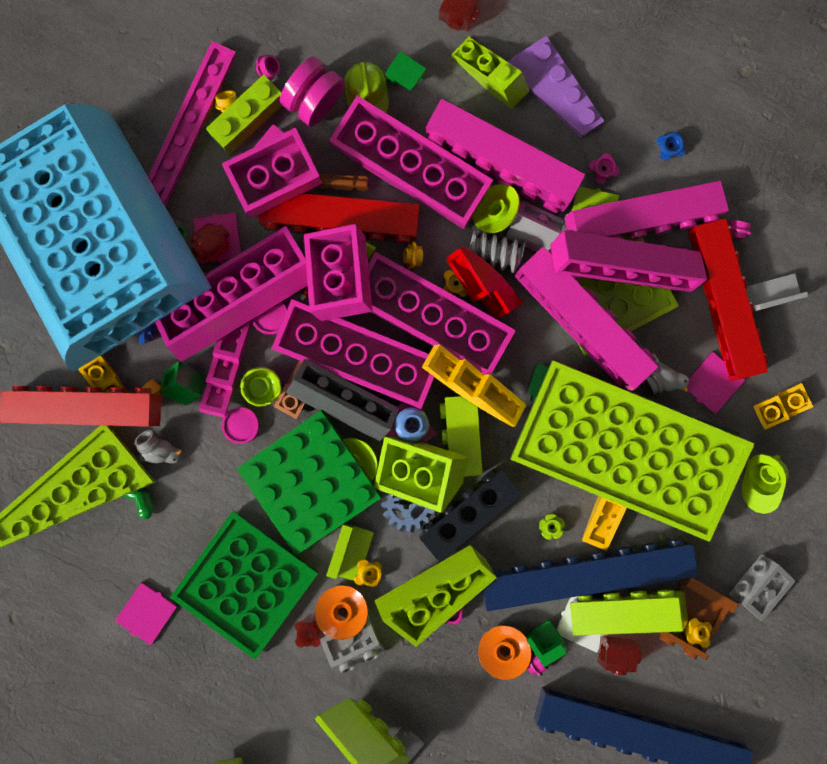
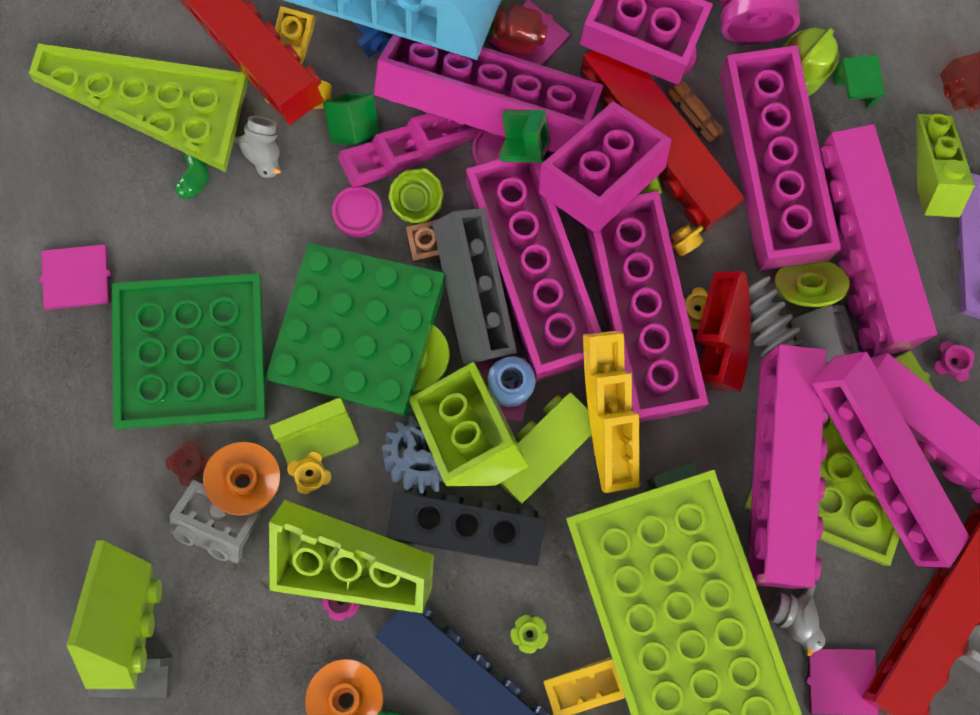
camera: 45 degrees right, 10 degrees down
(282, 300) = (525, 136): none -> green panel

